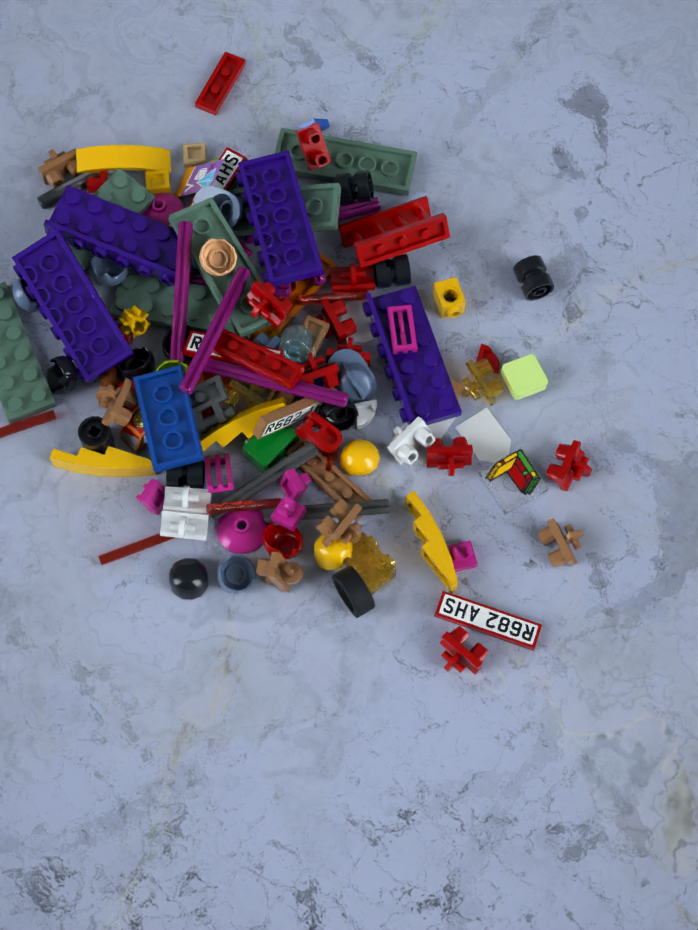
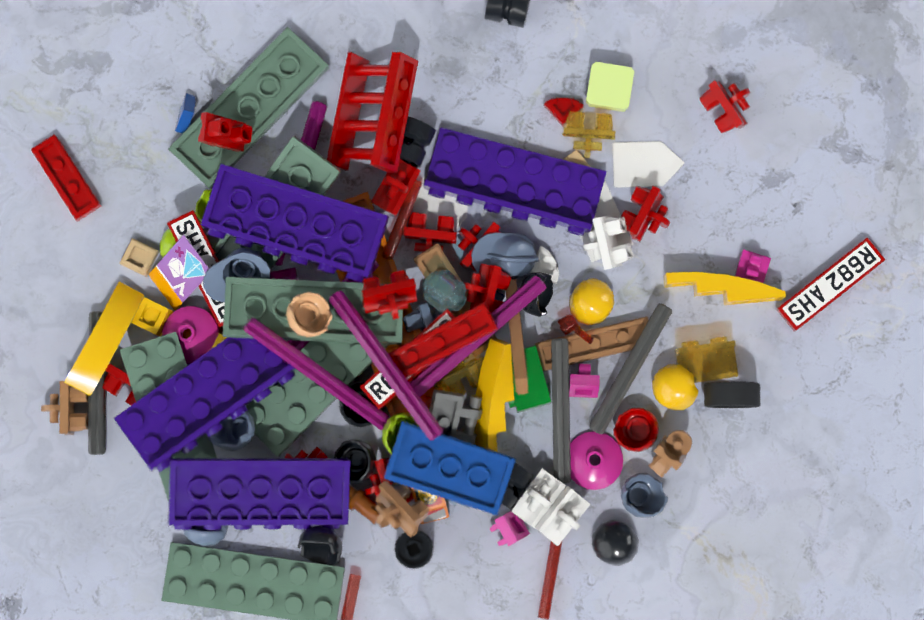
camera: 50 degrees left, 15 degrees up
(112, 464) = (450, 546): yellow slope -> none
(134, 321) = (310, 437): yellow gear -> none
(218, 462) = (508, 441): dark pink tile -> none
(242, 506) = (577, 445): clear red bar -> none
(288, 513) = (615, 408): dark pink tile -> none
(328, 437) = (560, 322): red plate -> none
(343, 527) = (668, 365): medium nougat hips -> none
(348, 191) = (293, 118): black wheel -> none
(404, 347) = (479, 183): dark pink tile -> none
(449, 289) = (467, 95): yellow brick -> none
(454, 643) = (861, 323): red hips -> none
(513, 481) = (707, 168): tile -> none
(564, 553) = (812, 169): medium nougat hips -> none

